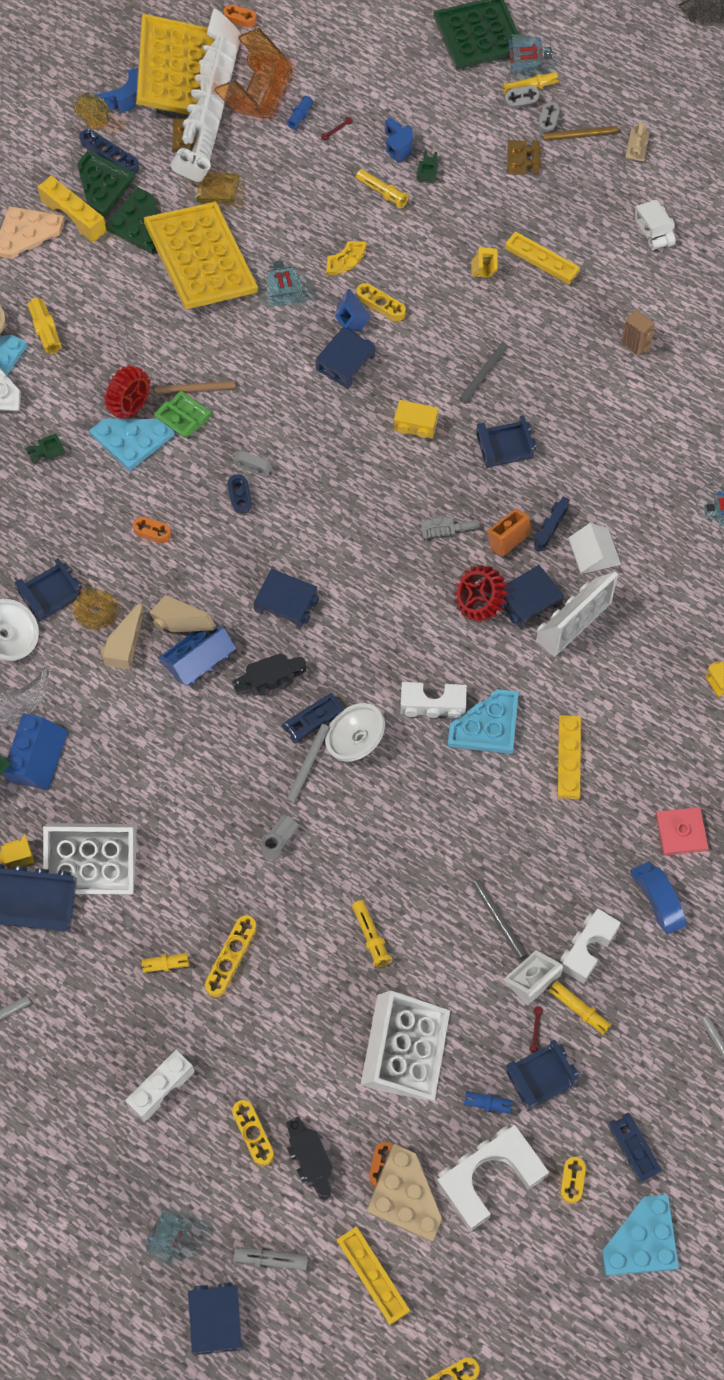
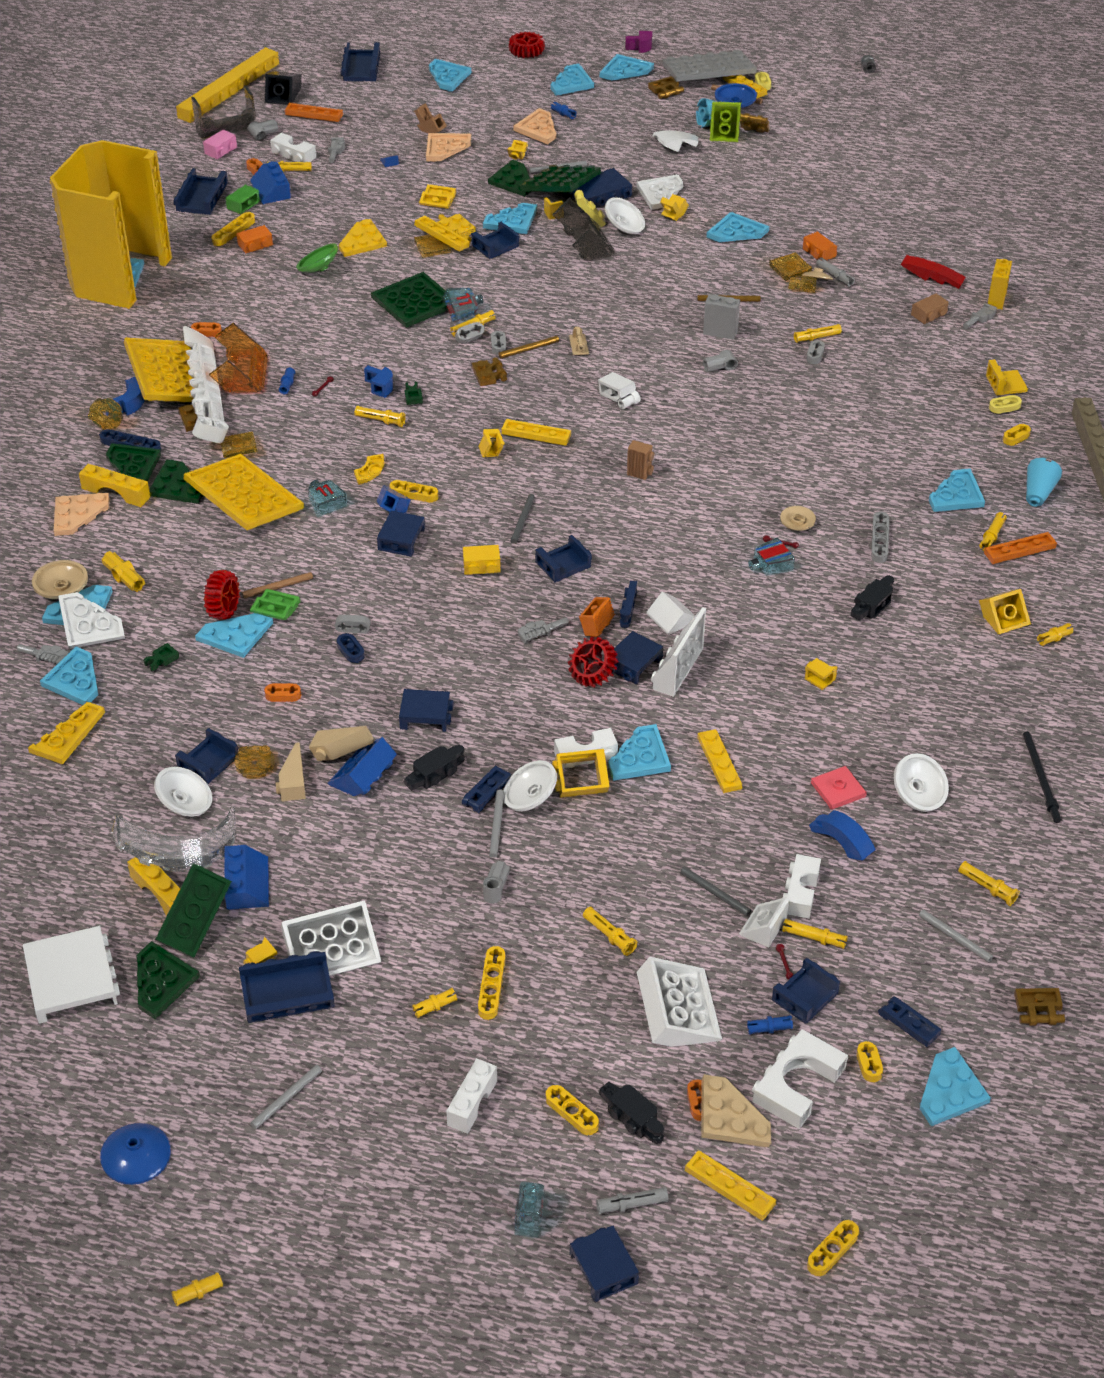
camera: 20 degrees left, 20 degrees down
(435, 739) = (580, 756): none -> yellow window

